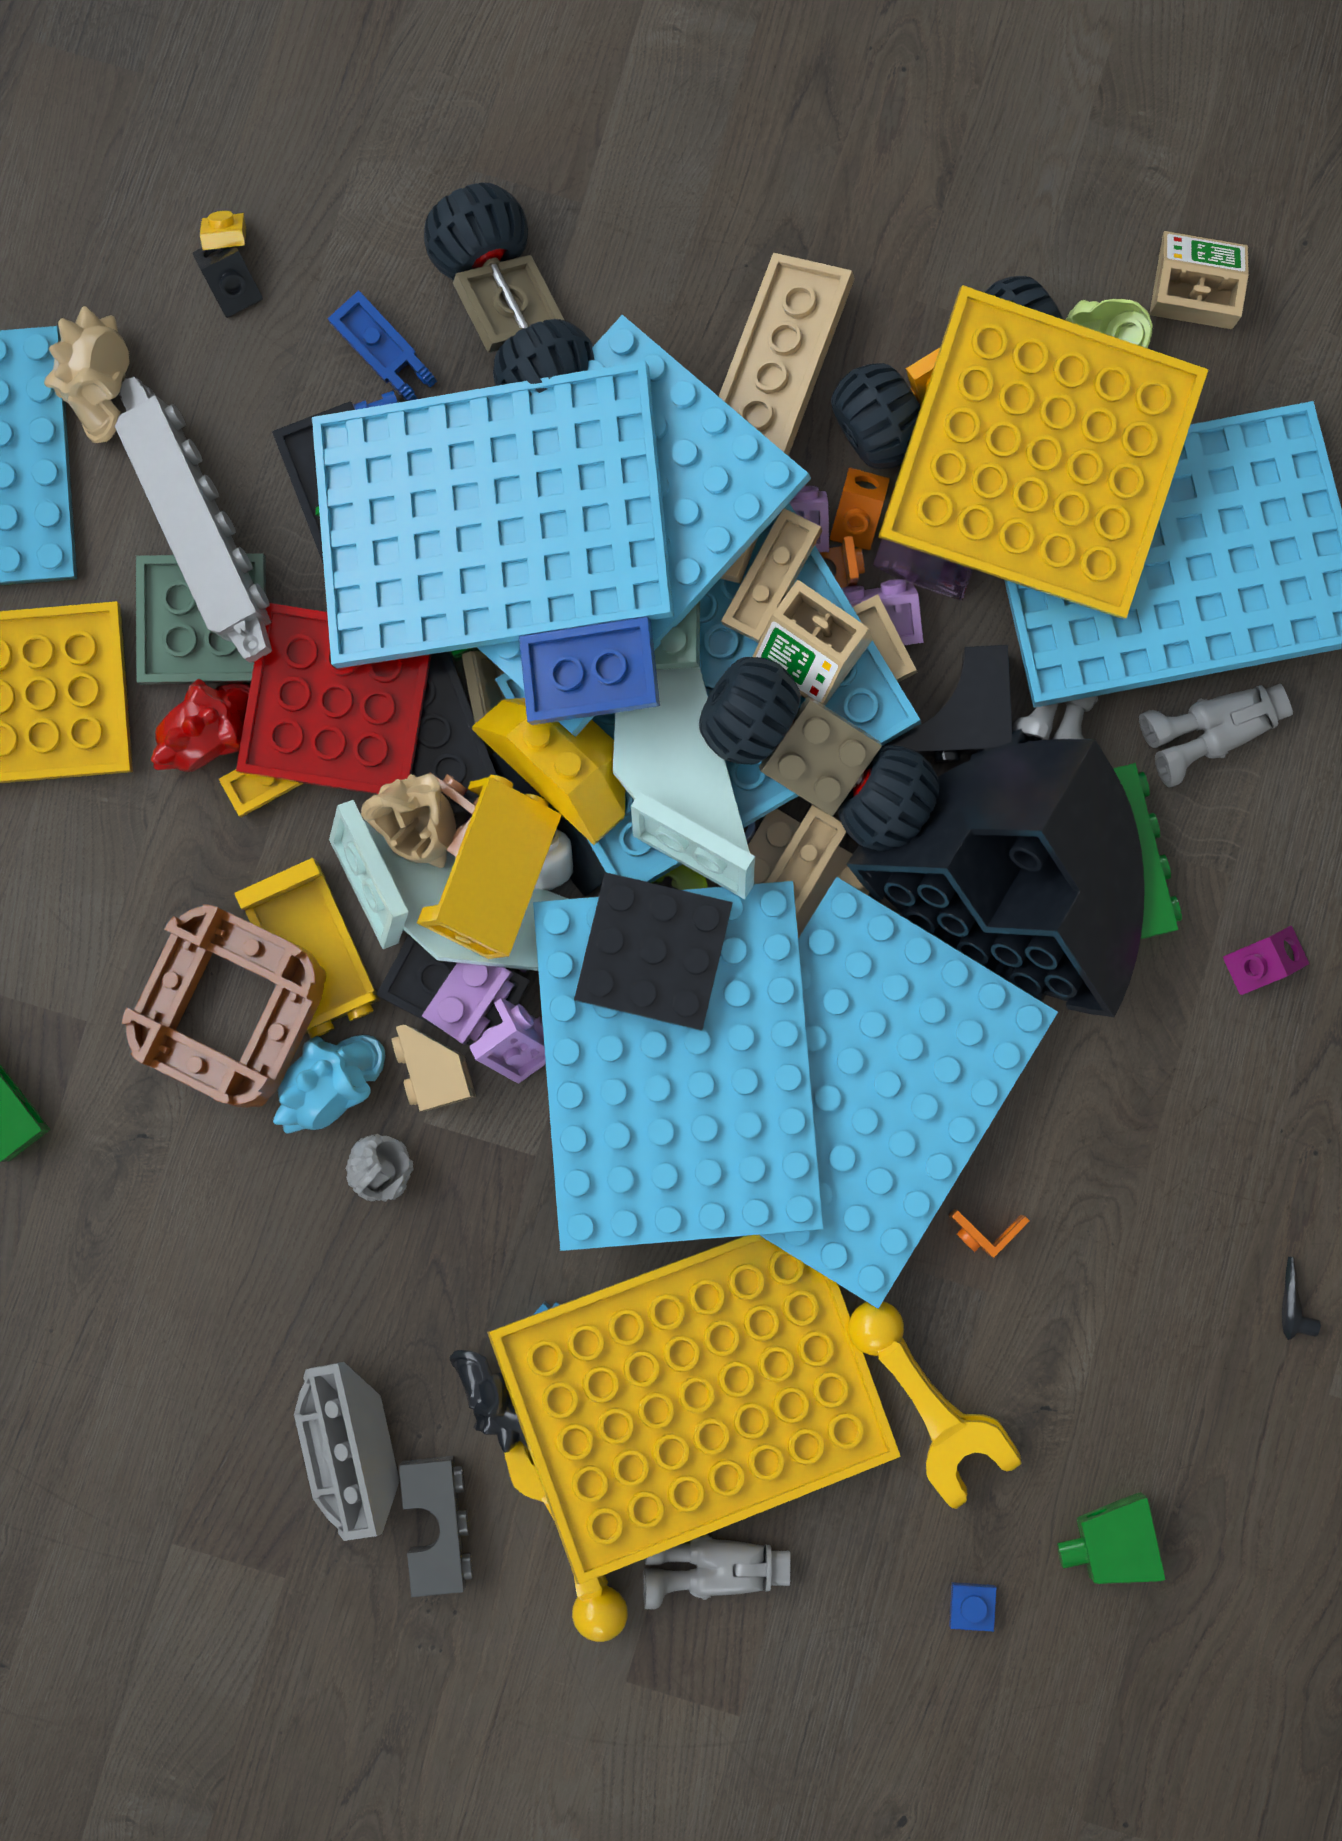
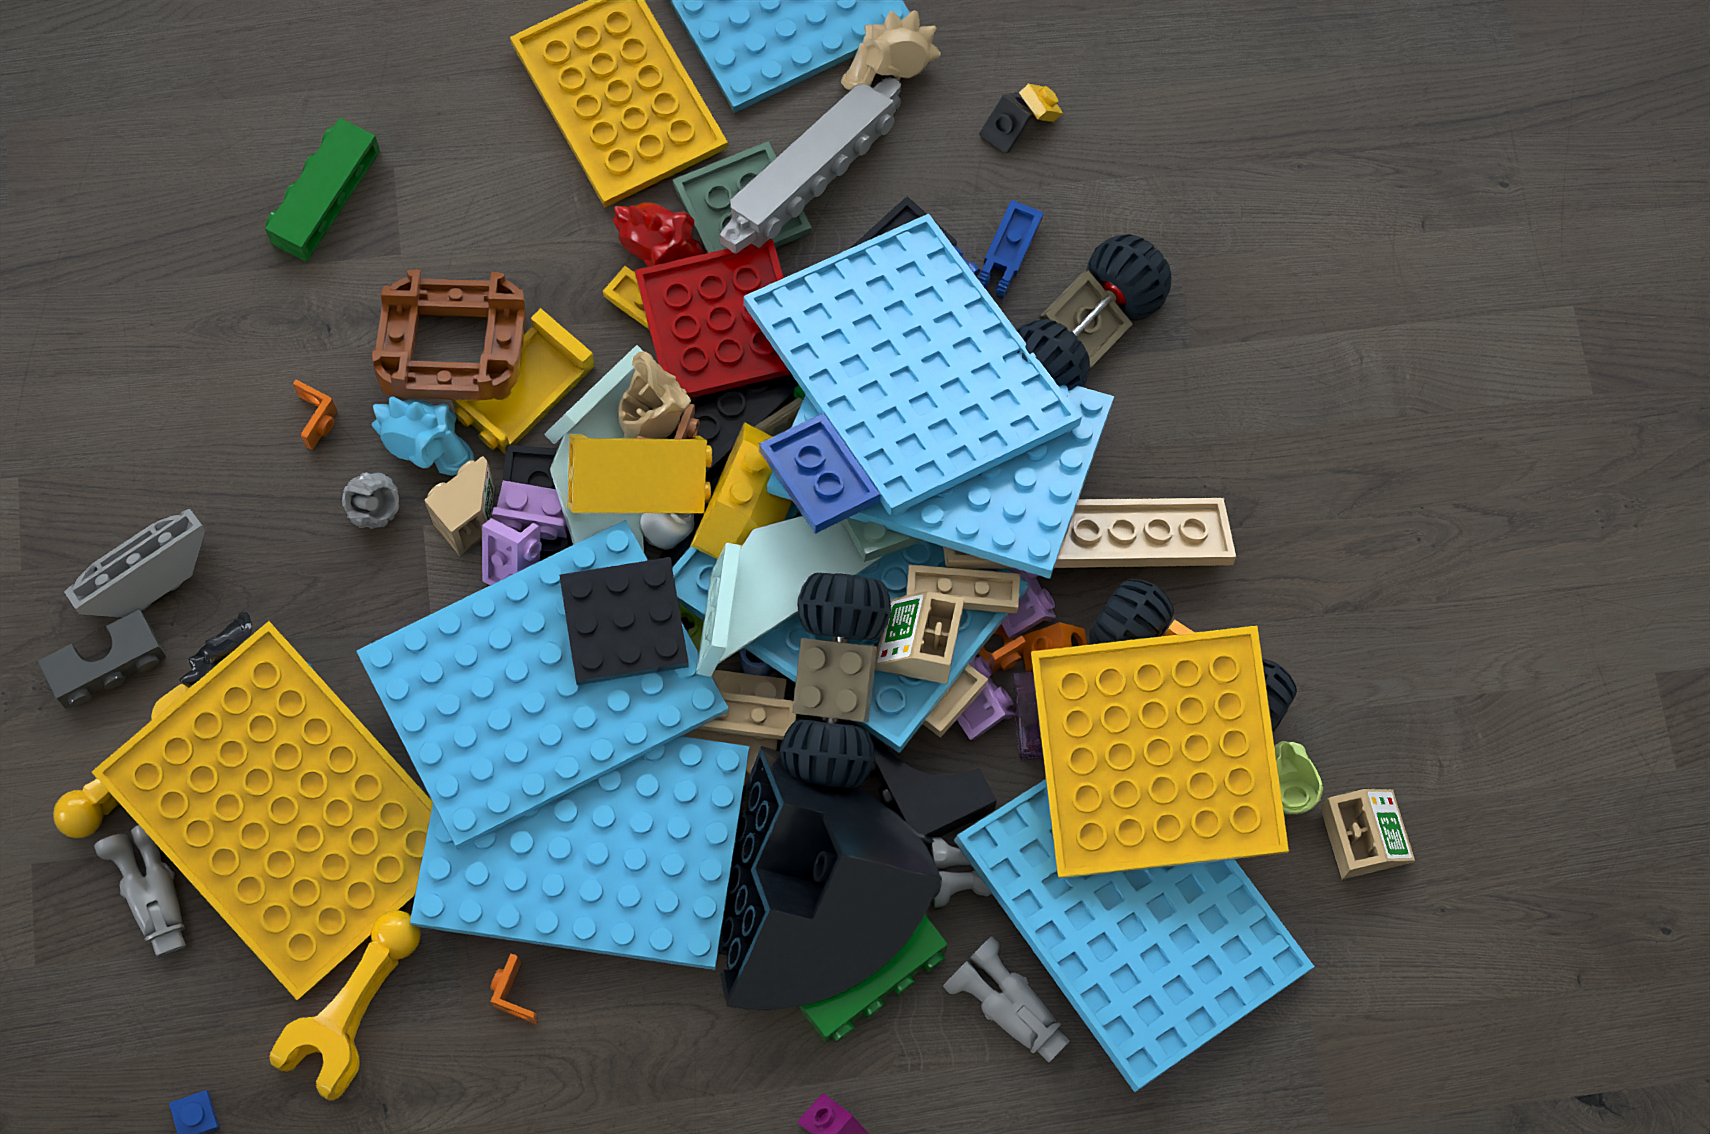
camera: 60 degrees right, 15 degrees down
(257, 1183) = (323, 418): none -> orange bracket

